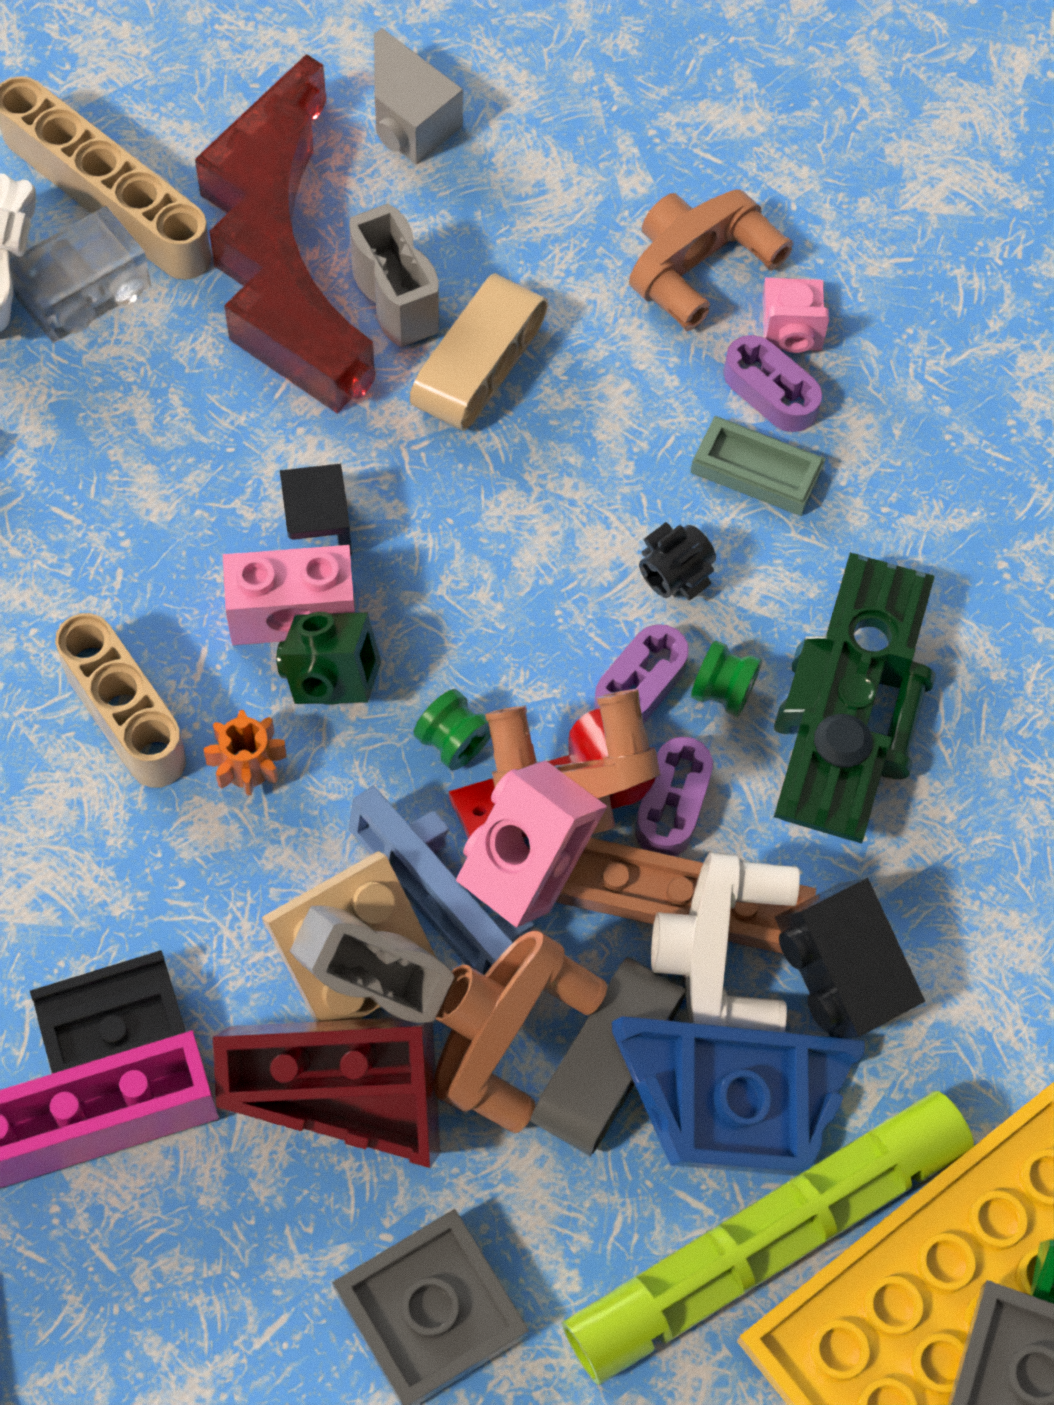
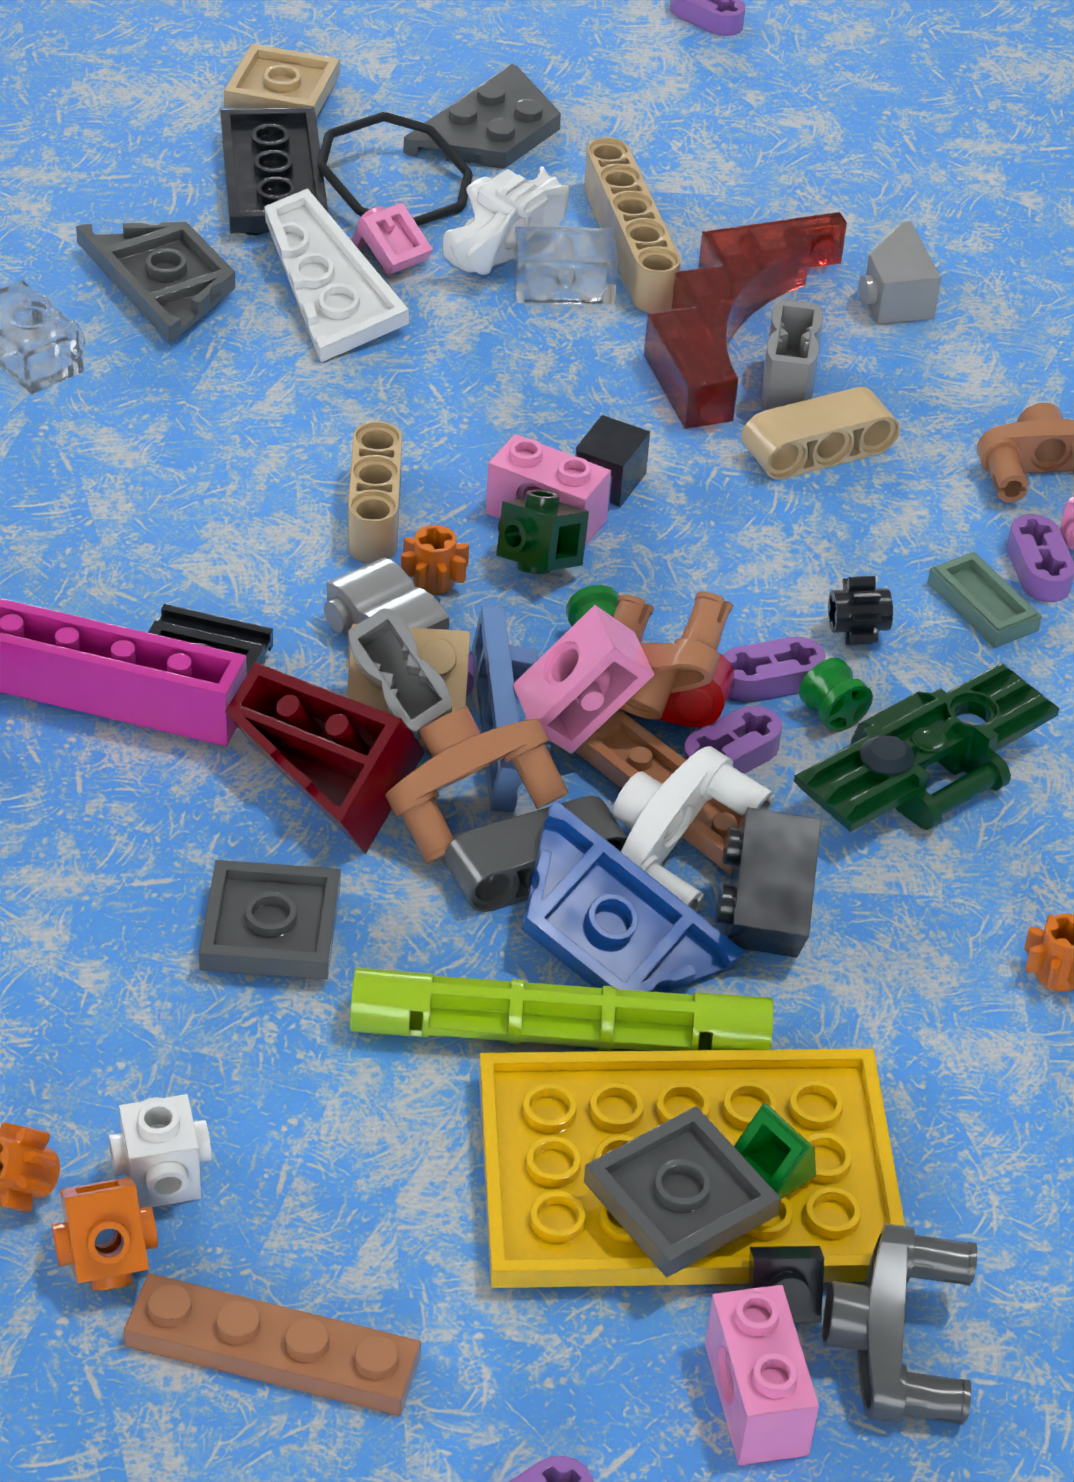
camera: 35 degrees right, 20 degrees down
(250, 853) = (376, 586): none -> light grey brick

